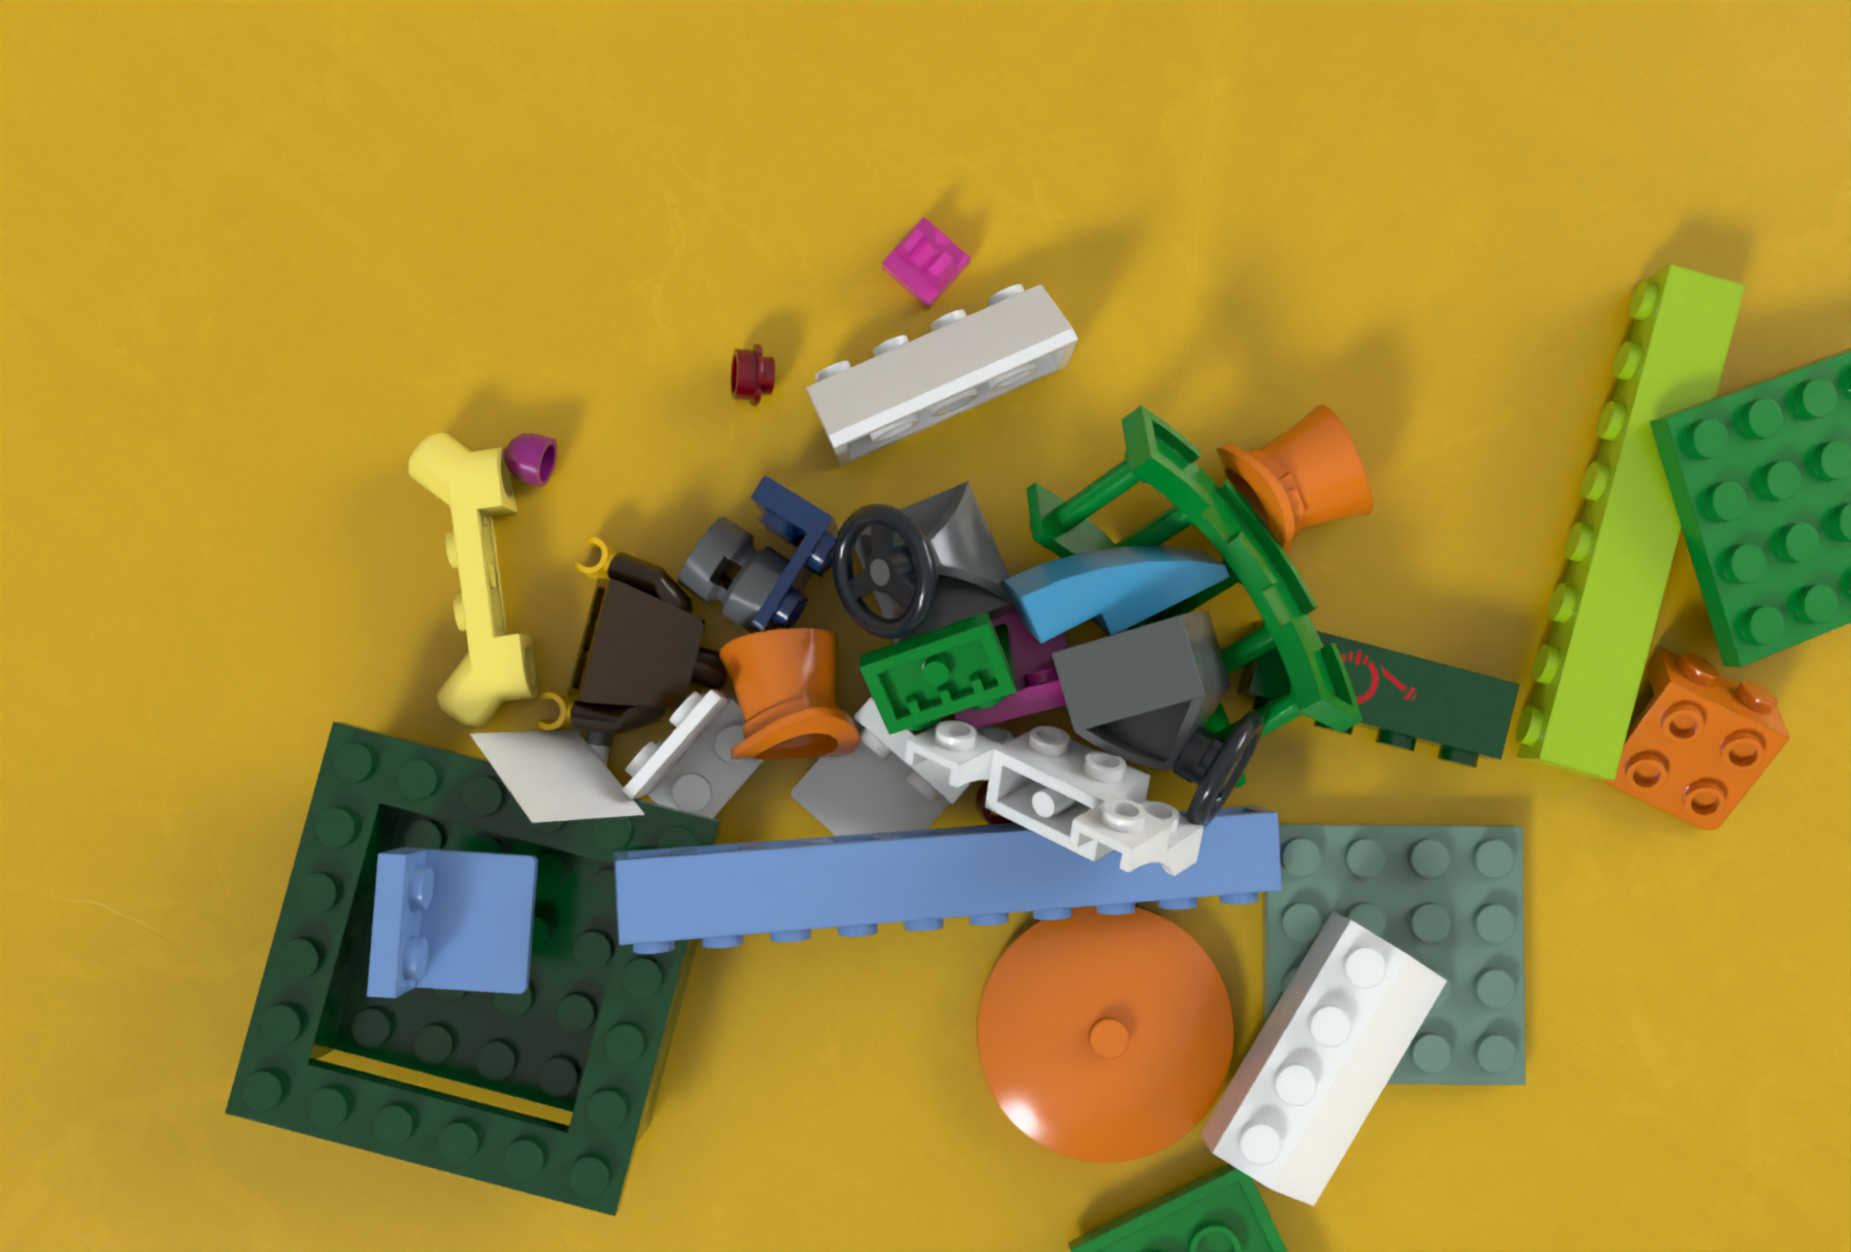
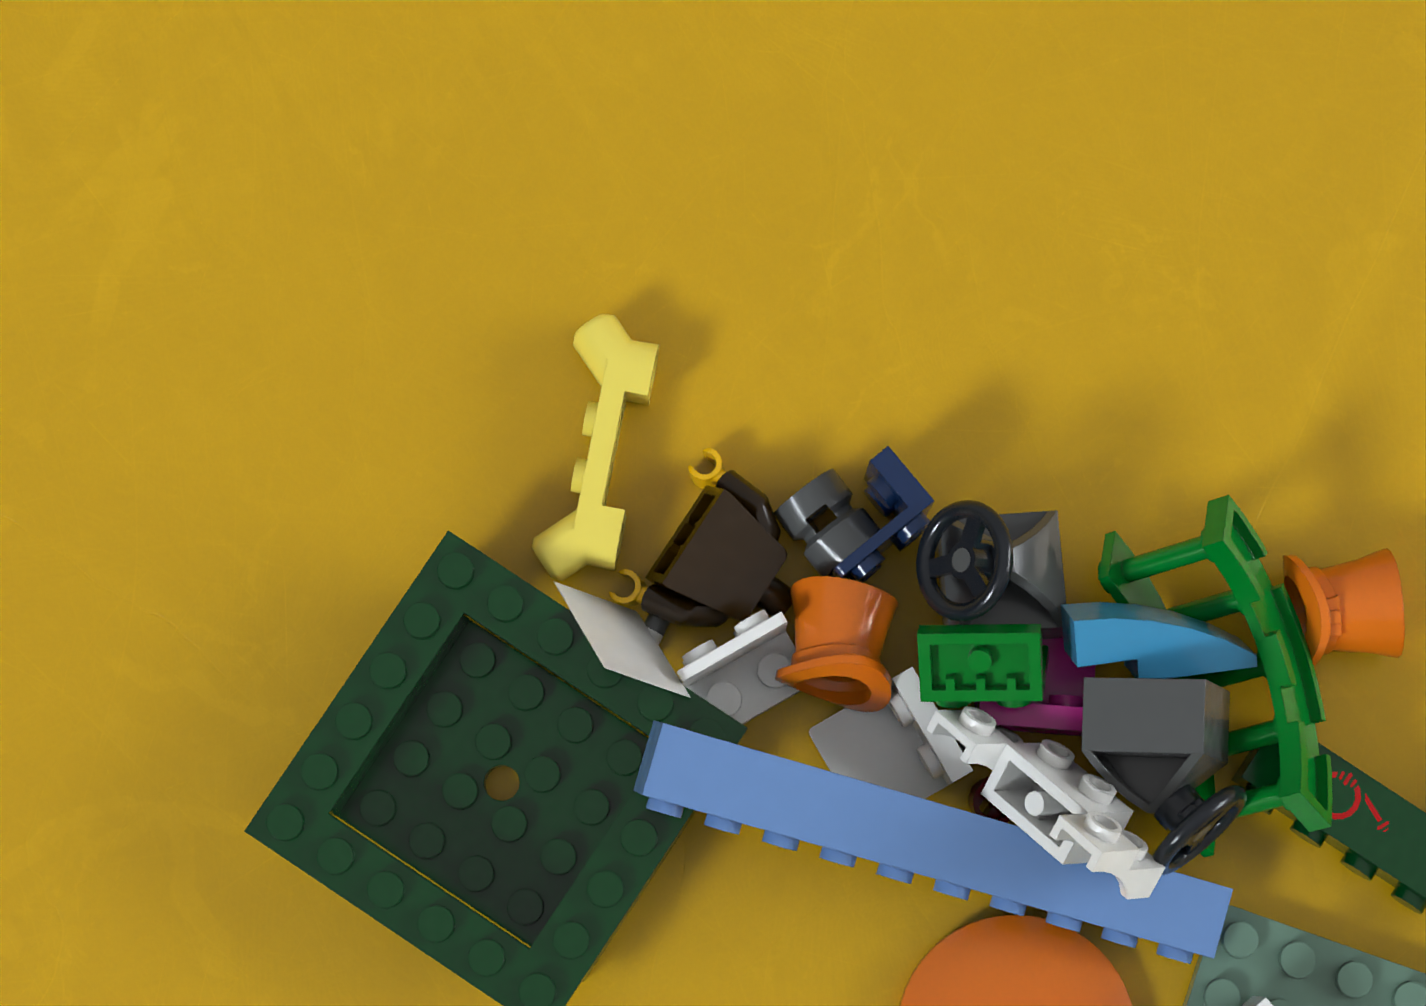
camera: 20 degrees right, 5 degrees down
(452, 921) = (505, 732): medium blue bracket -> none
(531, 458) = (680, 362): magenta hinge -> none
(751, 374) = (896, 355): dark red plate -> none
(926, 263) = (1080, 309): dark pink tile -> none
(942, 372) = (1063, 408): white slope -> none

